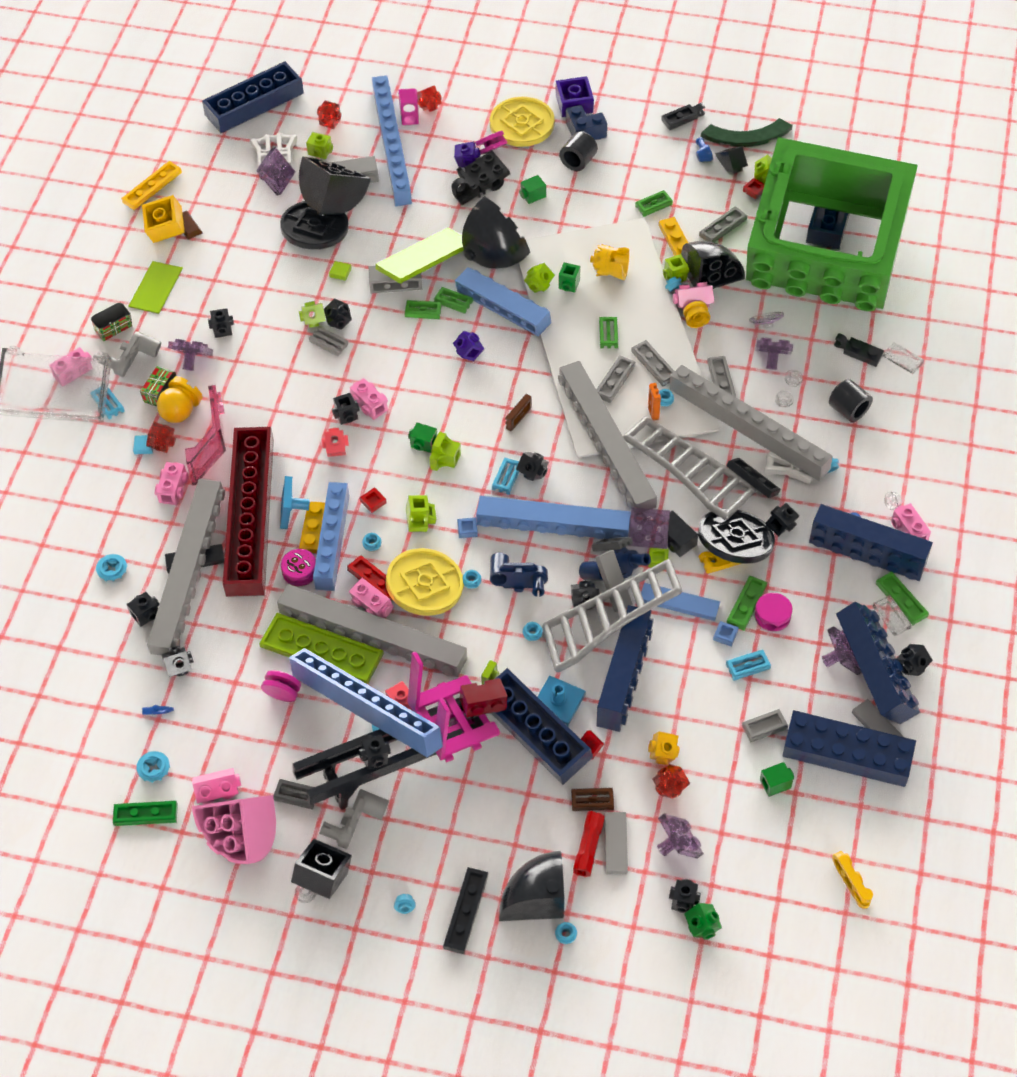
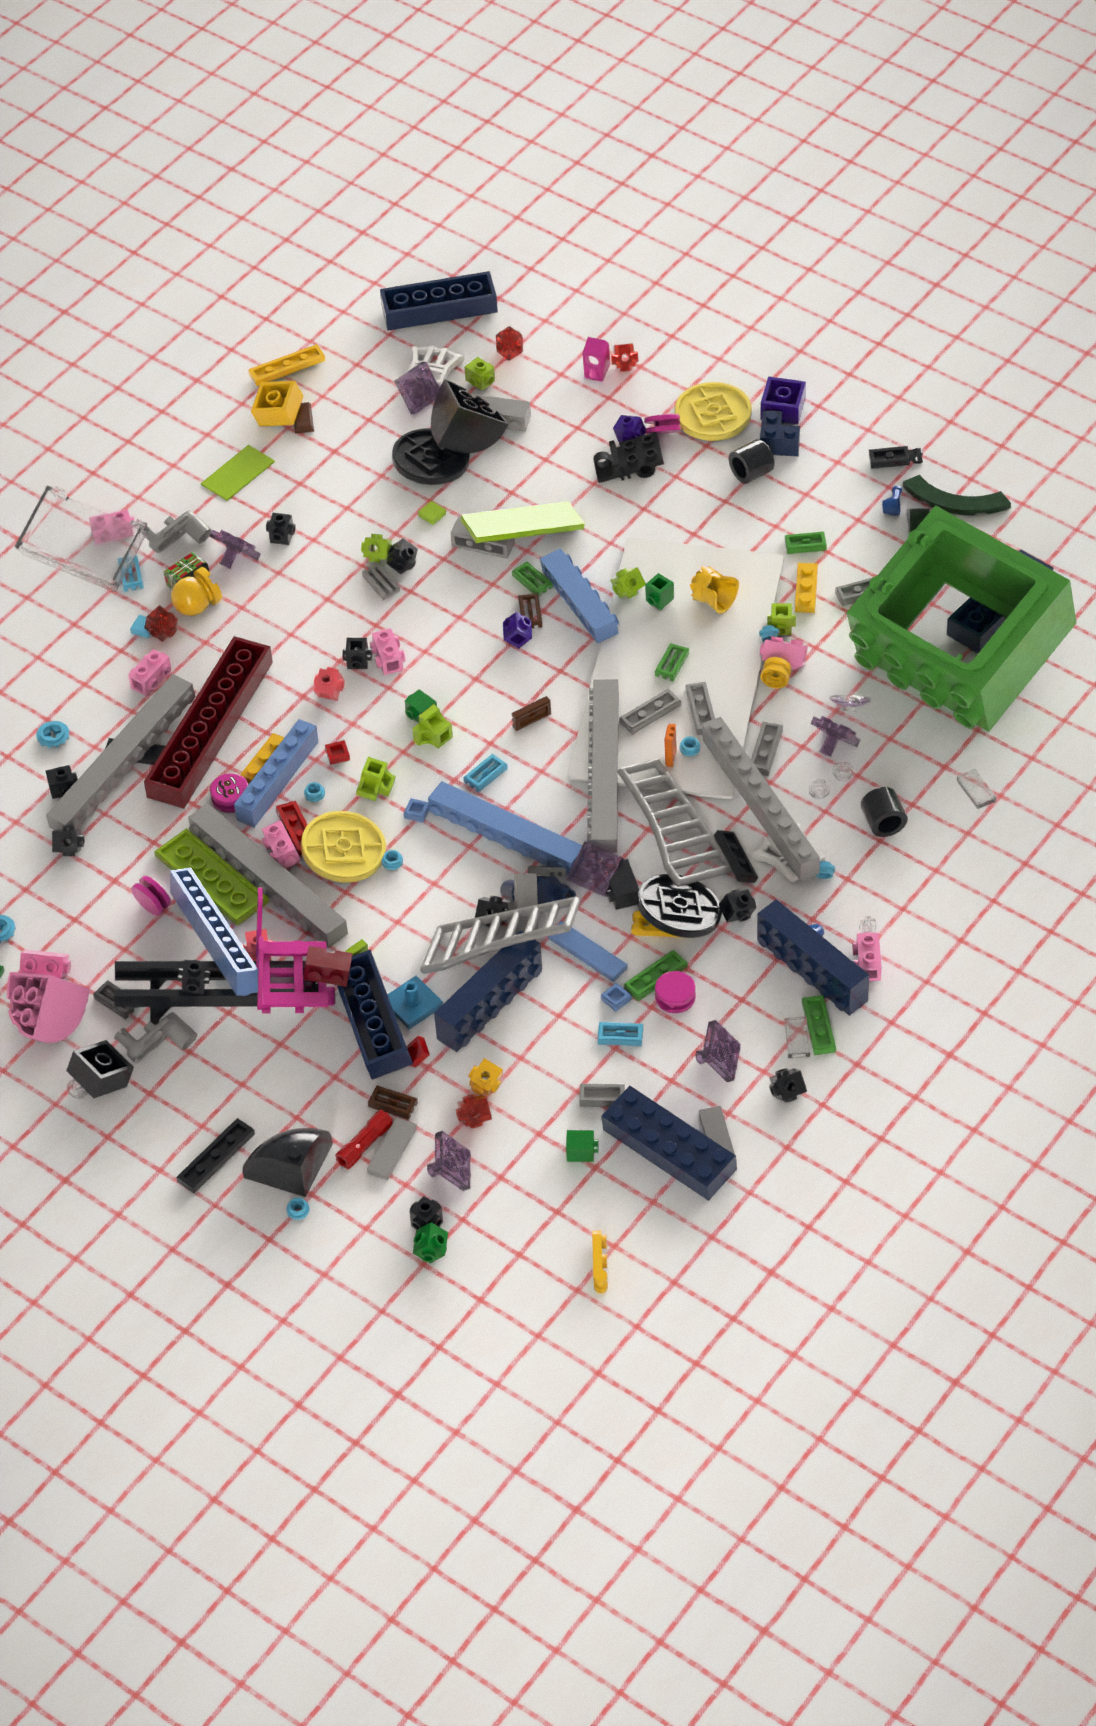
camera: 25 degrees right, 5 degrees down
(119, 318) = (173, 493): piece -> none
(156, 710) = (27, 879): blue helmet -> none
(212, 445) = (209, 645): clear pink windscreen -> none
(289, 503) = (249, 726): dark azure tile -> none
(391, 141) = (558, 391): medium blue brick -> none
(404, 903) = (162, 1129): medium azure plate -> none
(424, 310) = (493, 581): bright green tile -> none
(460, 329) = (528, 597): none -> reddish brown tile
(492, 238) = (600, 524): black brick -> none
(517, 574) = (436, 869): dark blue piece -> none
(532, 466) = (513, 770): black brick -> none
(532, 626) = (427, 926): medium azure plate -> none
(533, 189) = (680, 488): green brick -> none
(657, 556) = (592, 902): lime tile -> none
(711, 264) = (822, 625): black brick -> none
(859, 349) = (933, 765): black plate -> none
(878, 663) = (744, 1072): dark blue brick -> none

